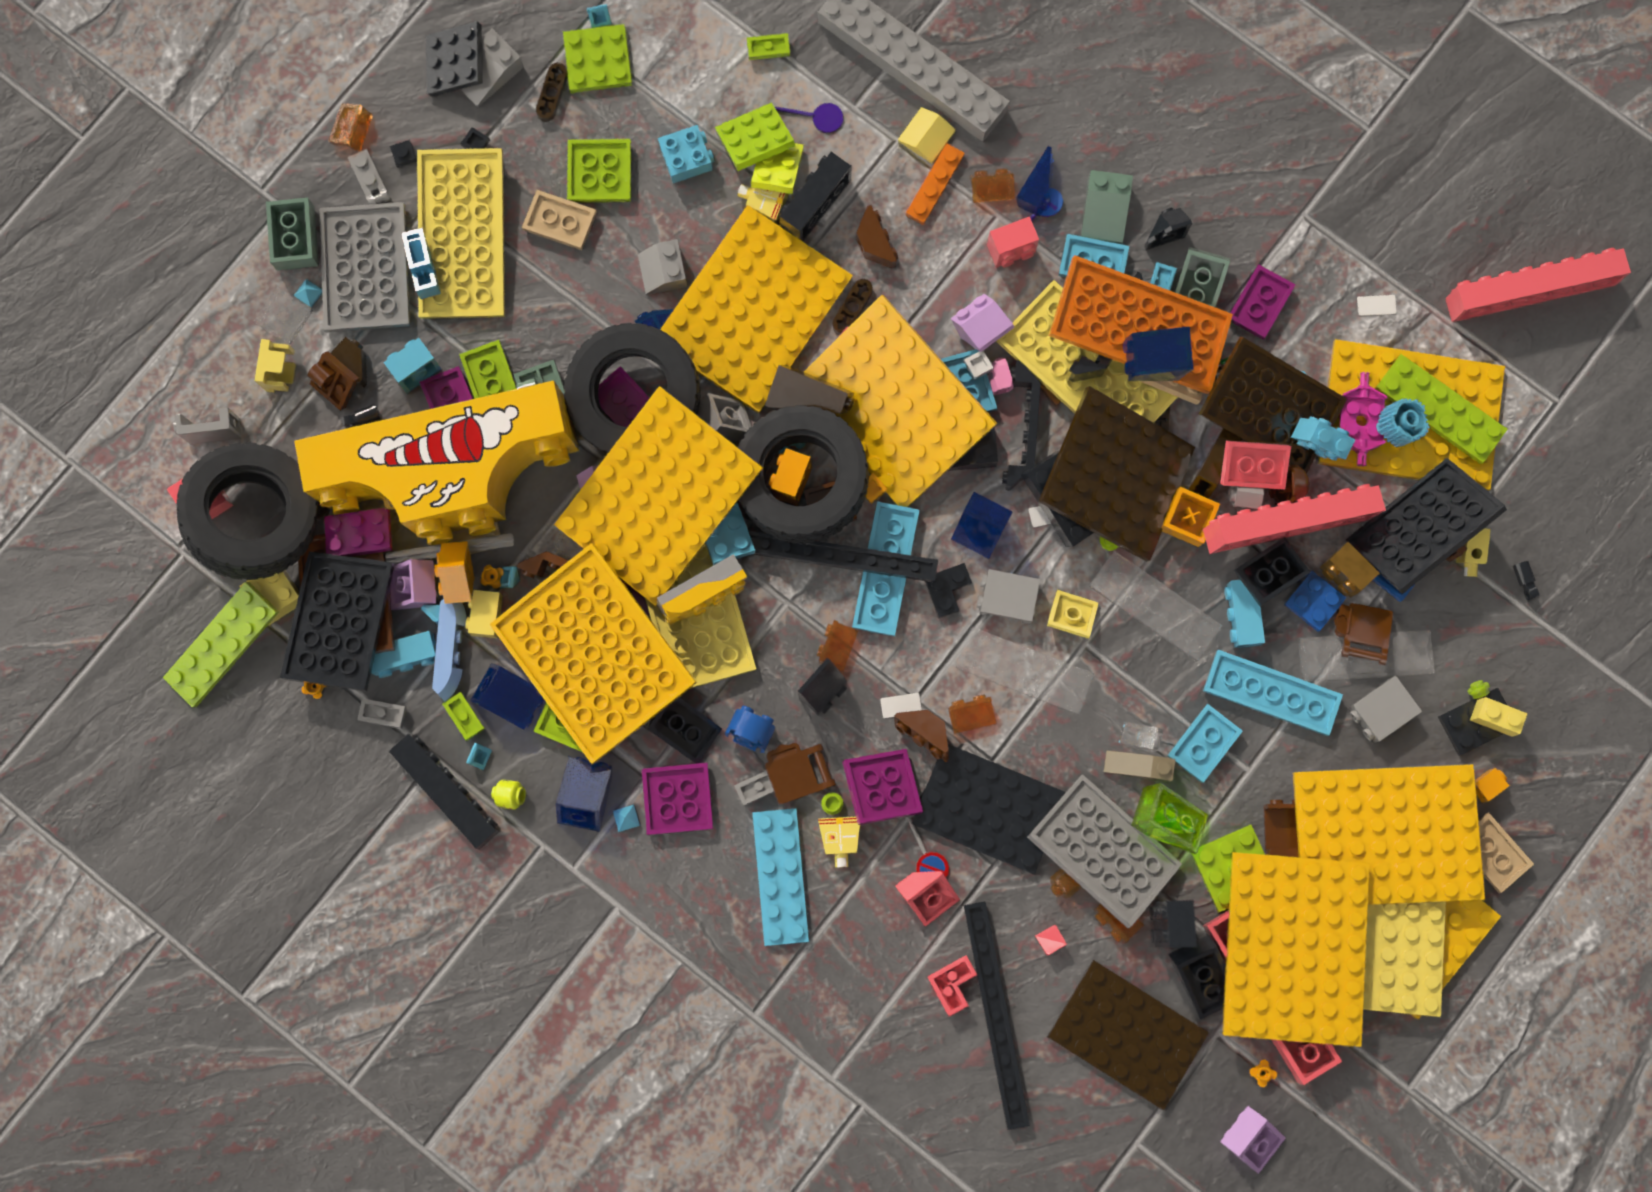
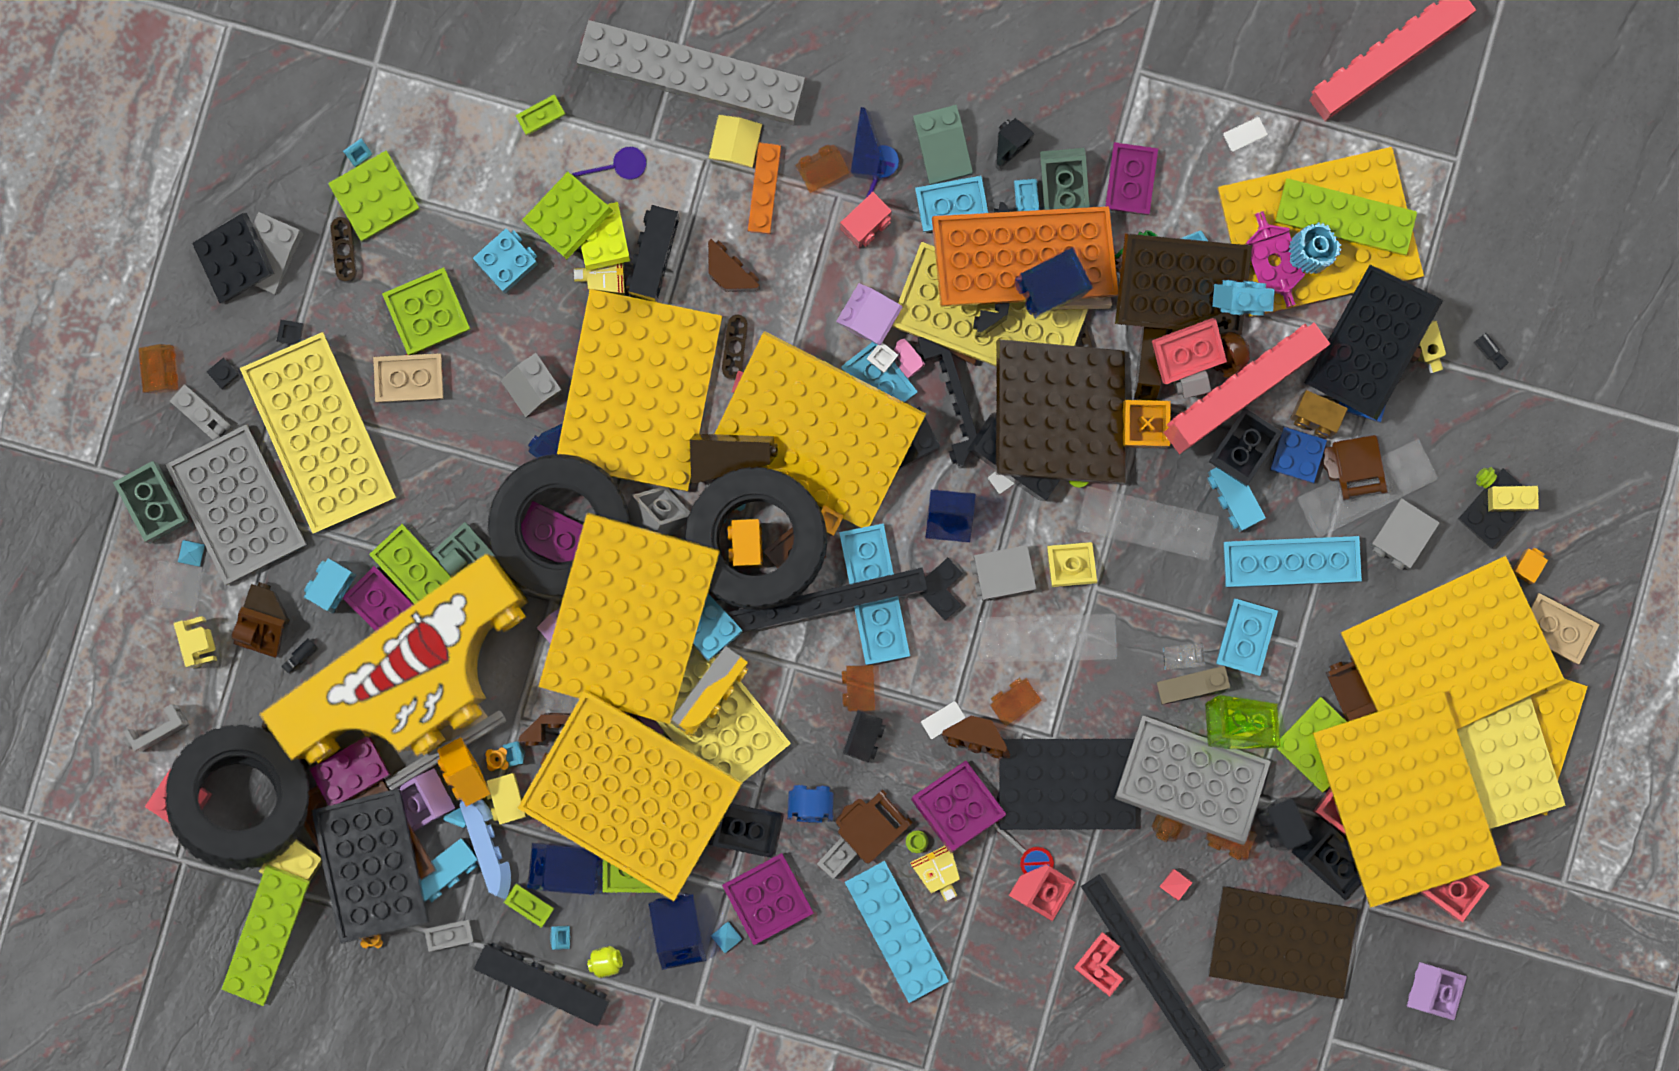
camera: 25 degrees left, 5 degrees up
(421, 263) = (293, 481): dark azure slope -> none
(1269, 1073) = (1416, 926): light orange plate -> none

